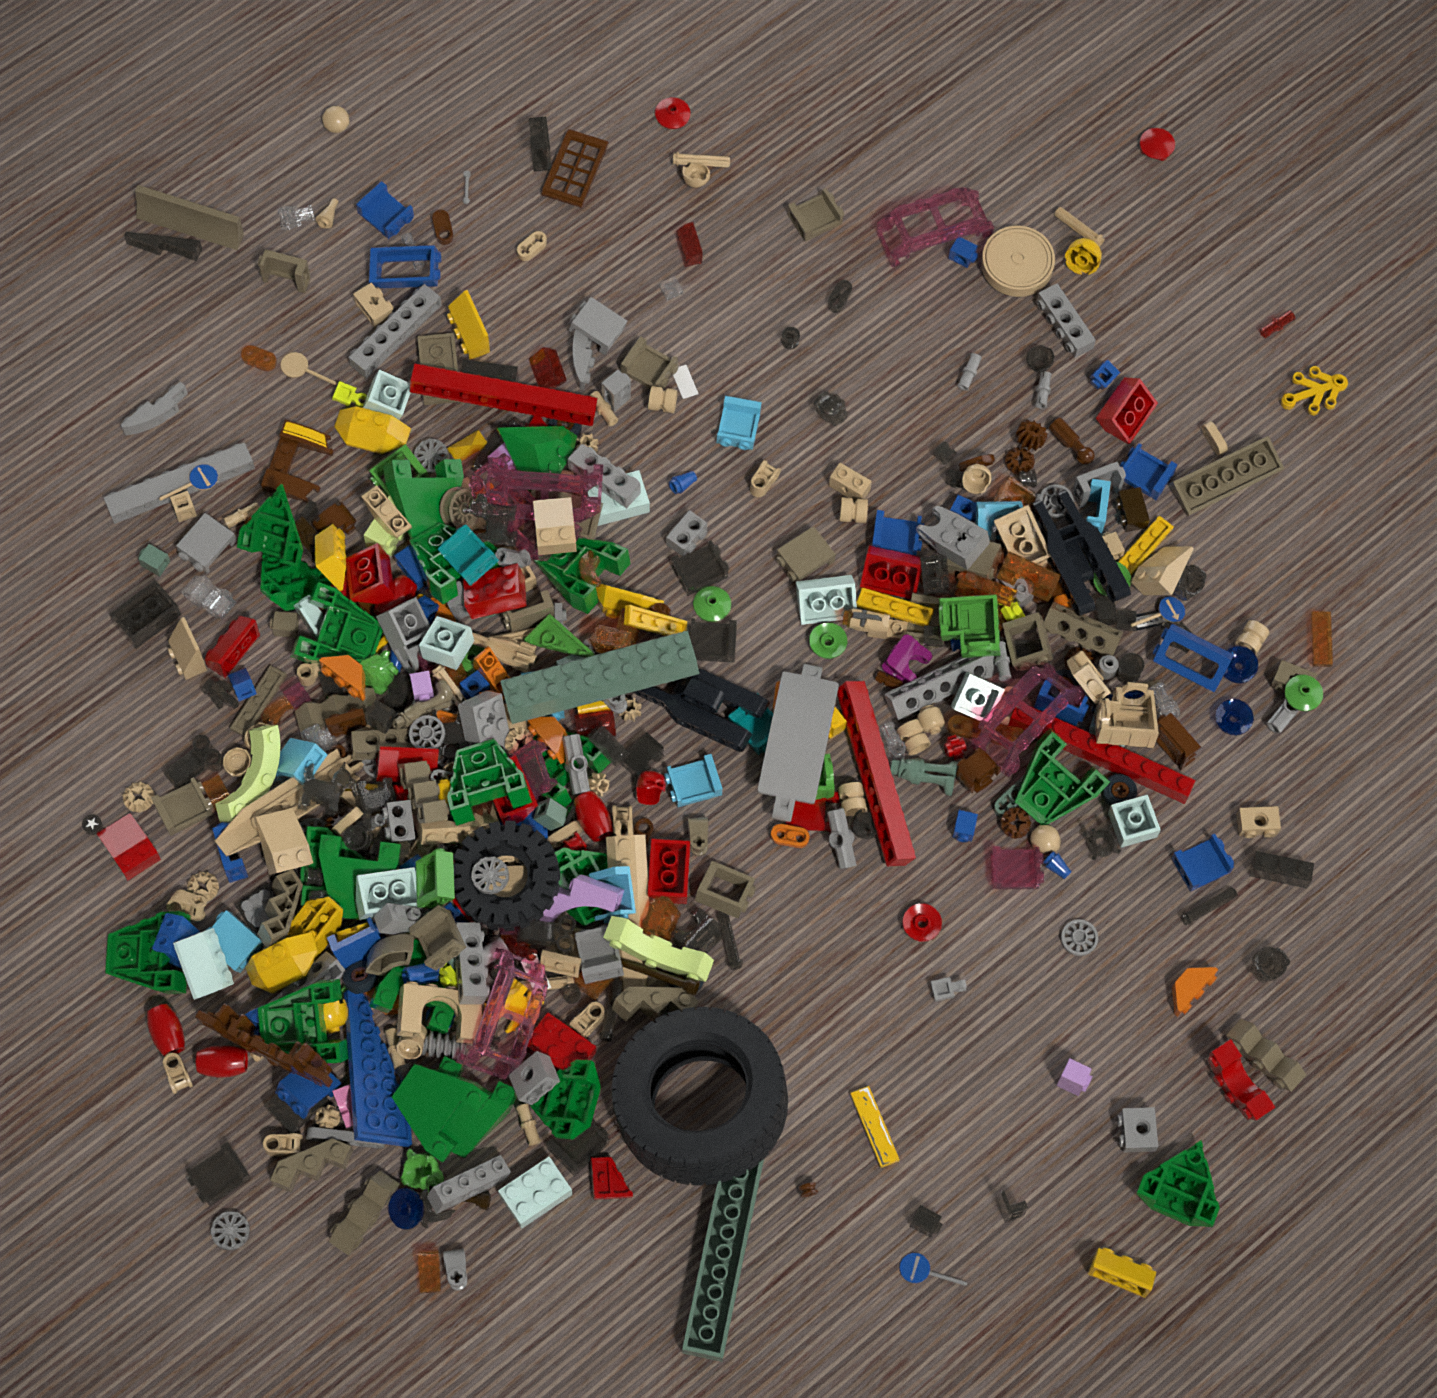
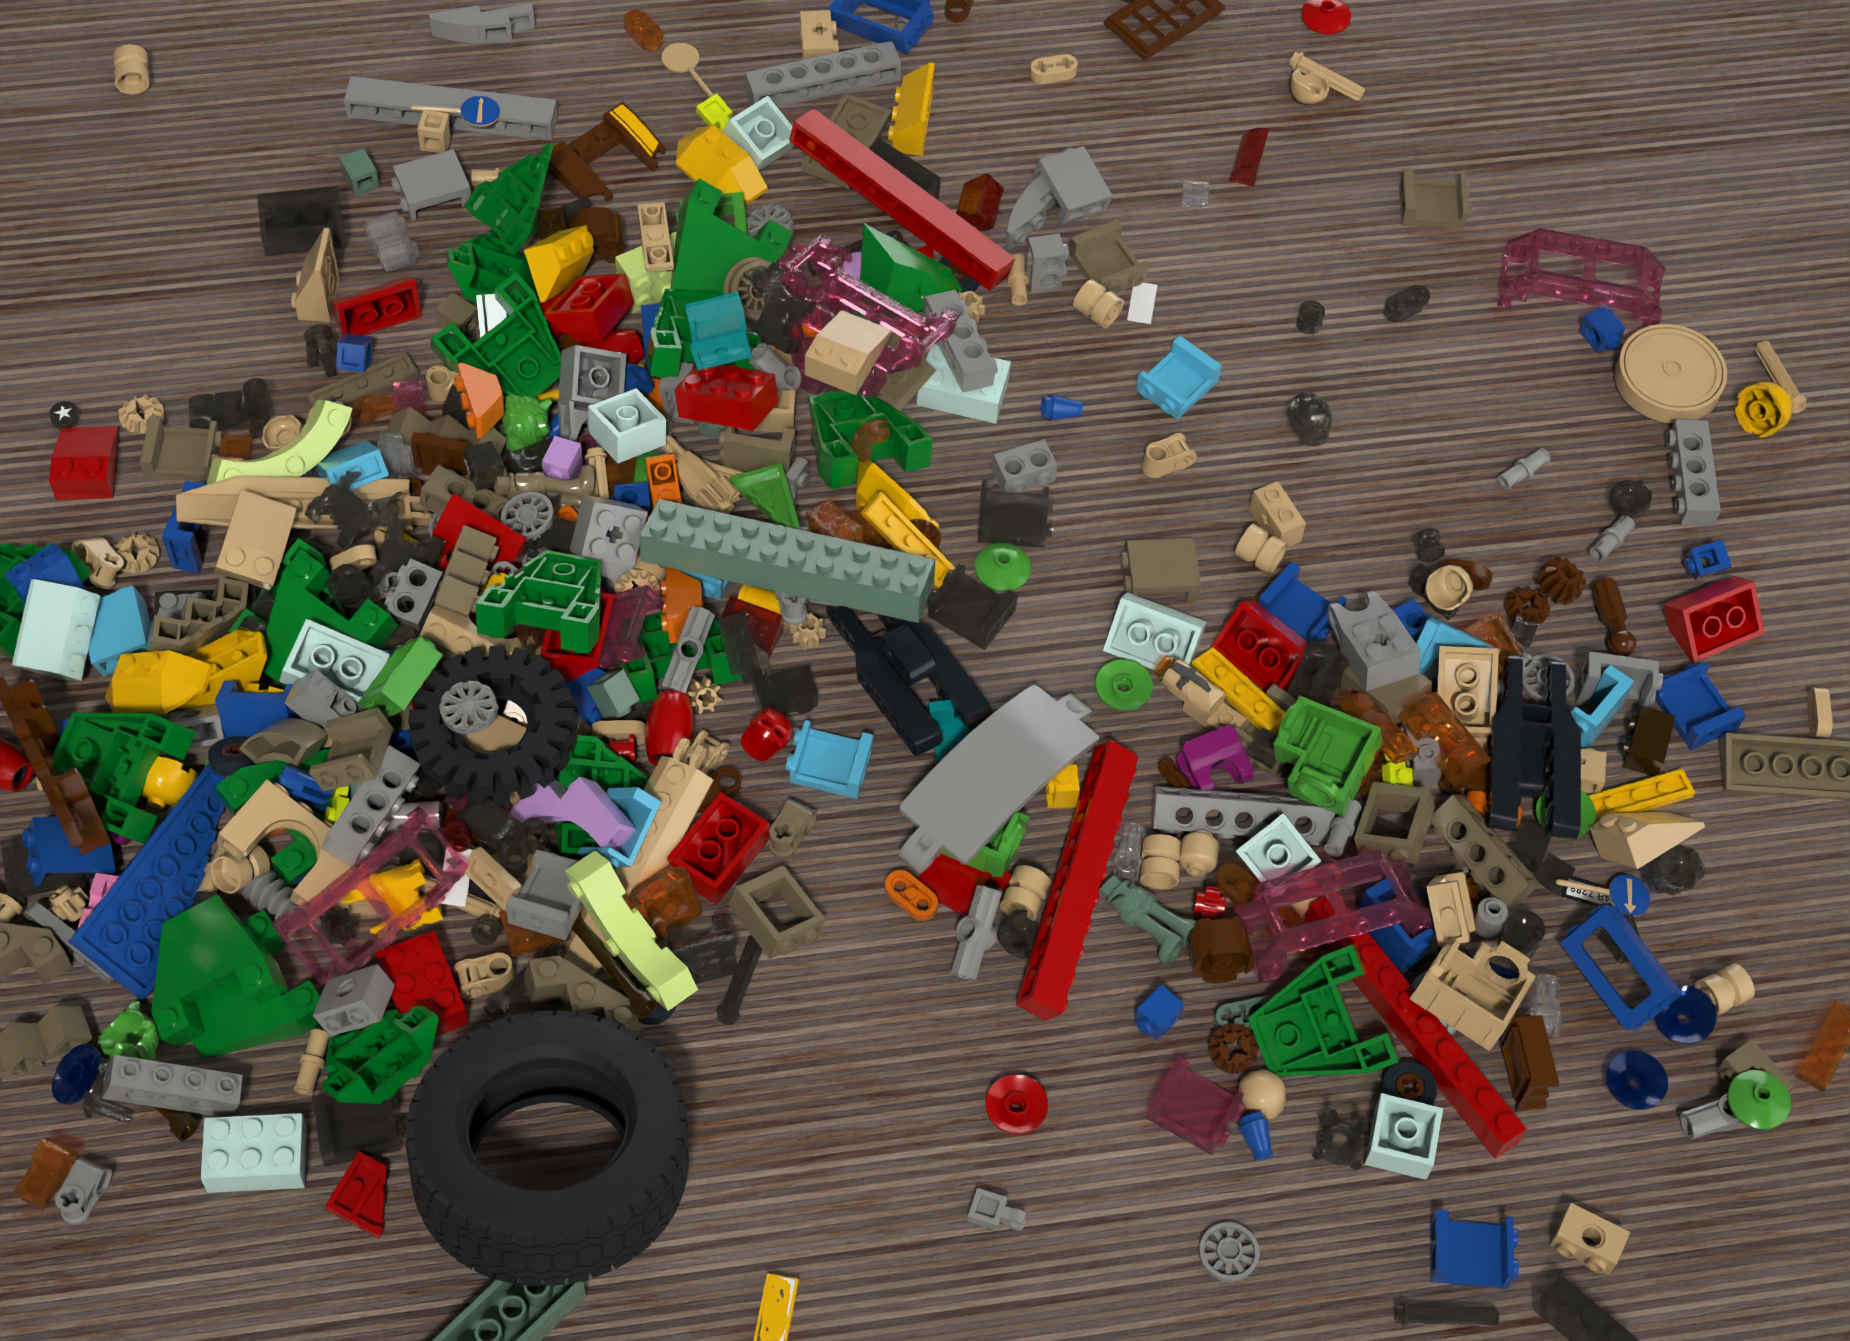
camera: 30 degrees right, 10 degrees down
(467, 446) = (838, 236): yellow slope -> none

